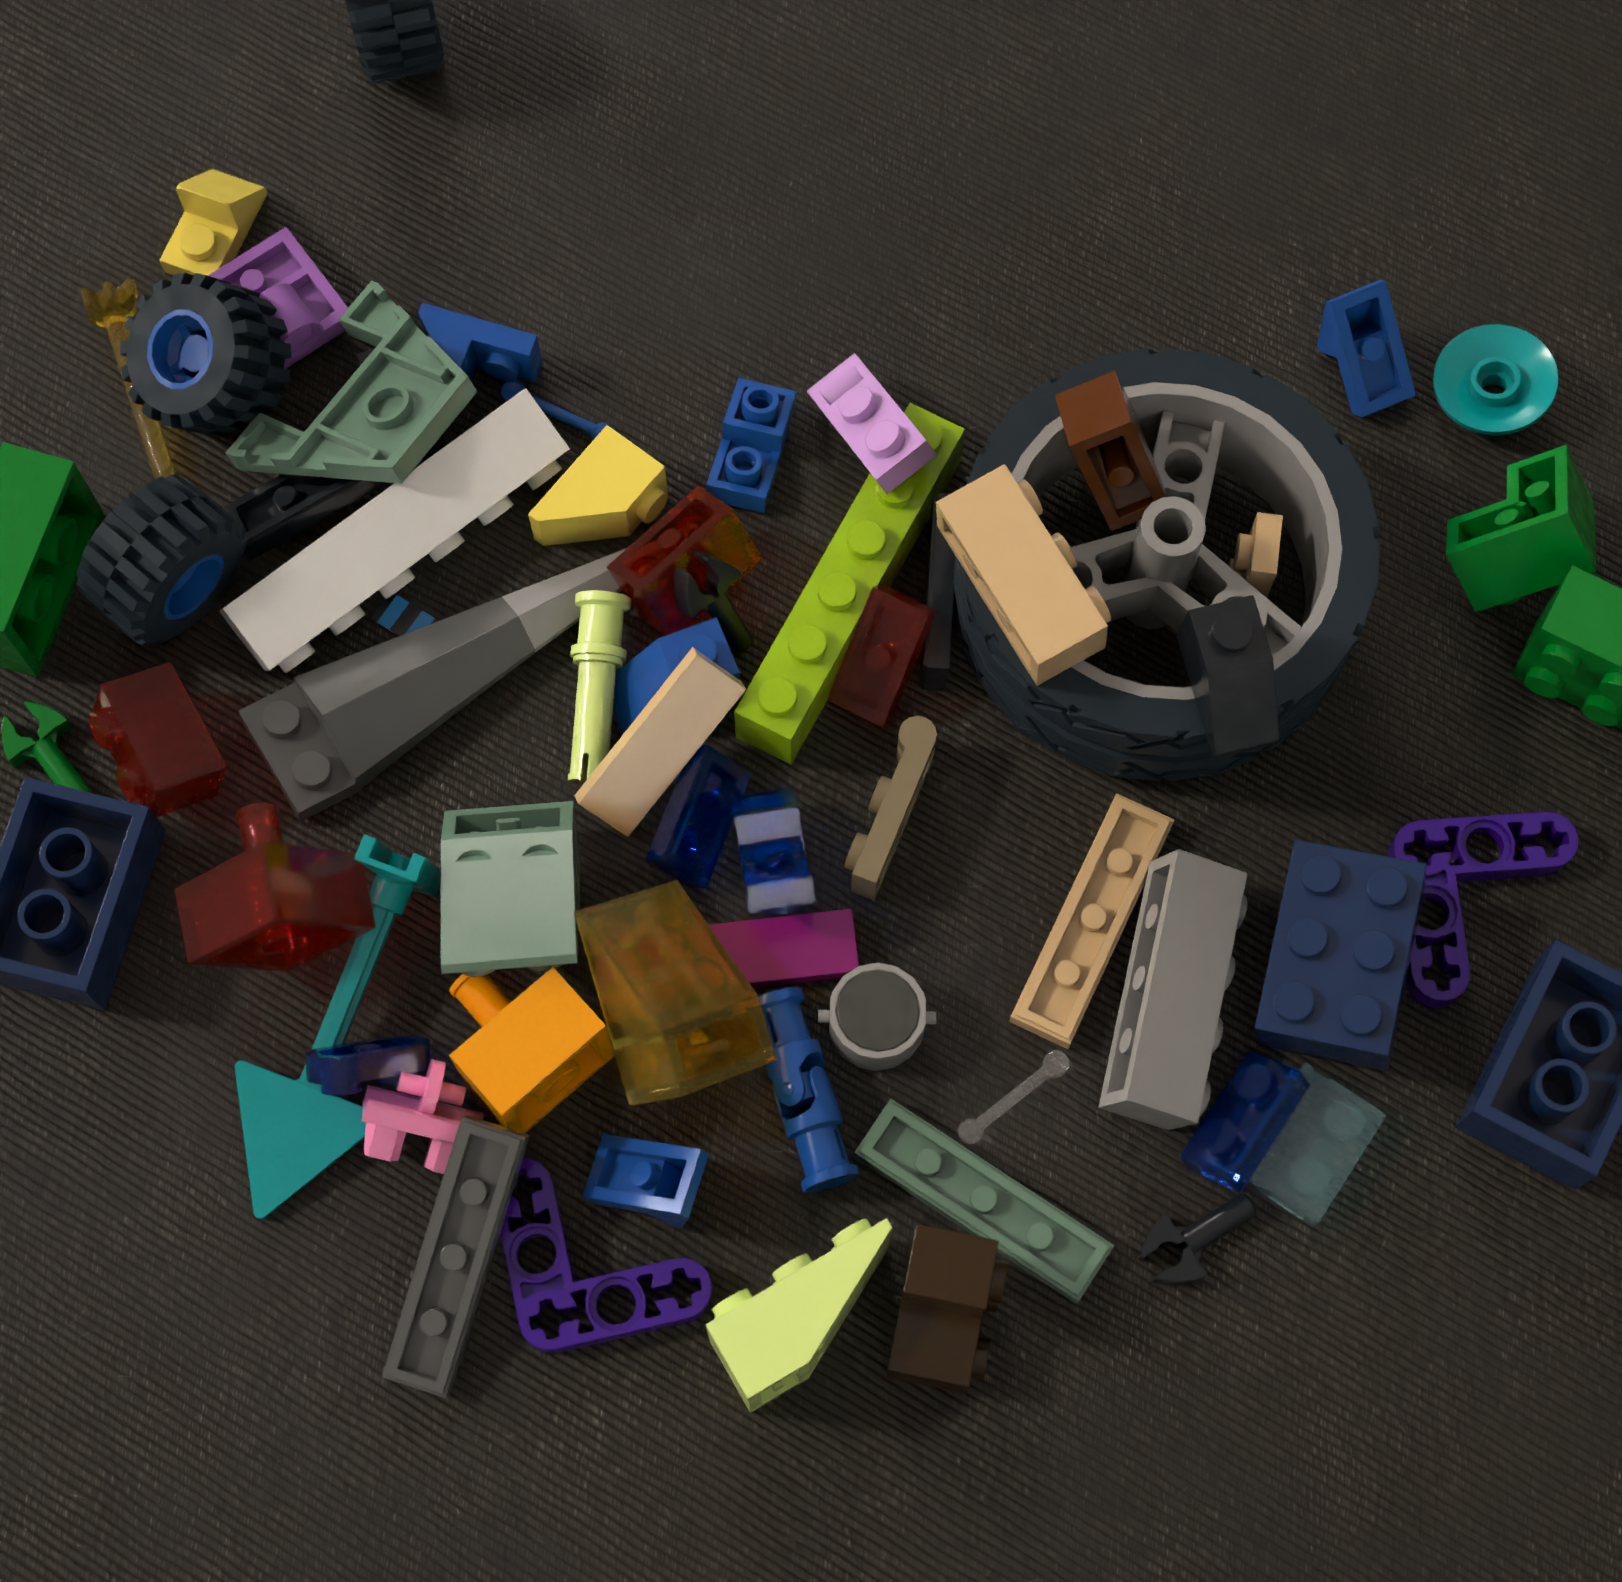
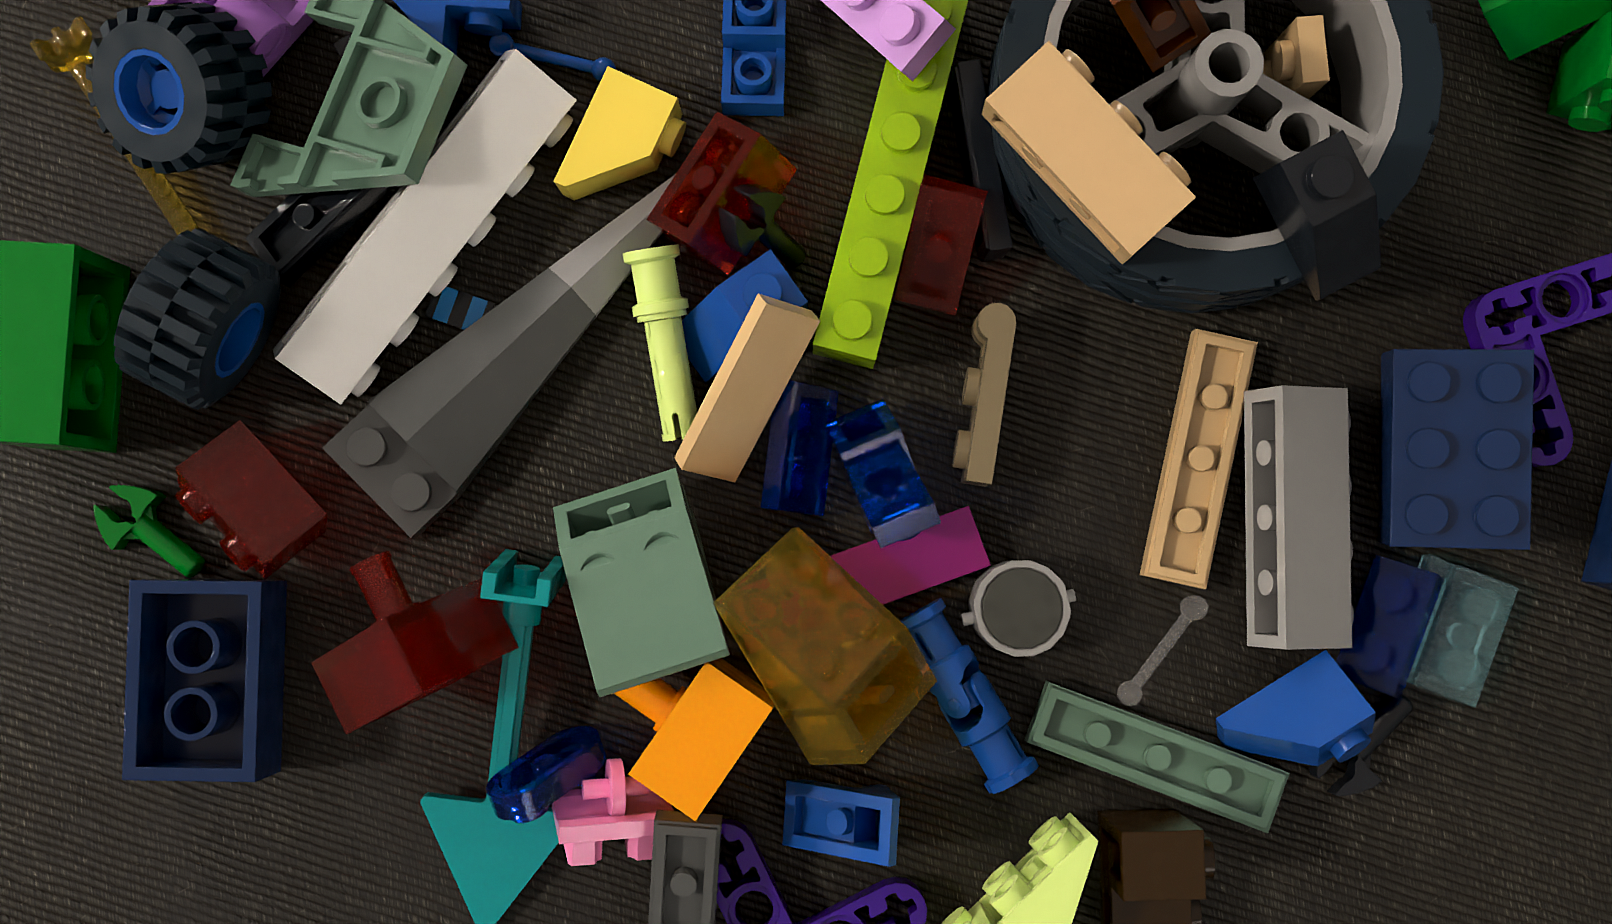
camera: 10 degrees left, 15 degrees up
(1131, 1183) = (1302, 717): none -> blue slope

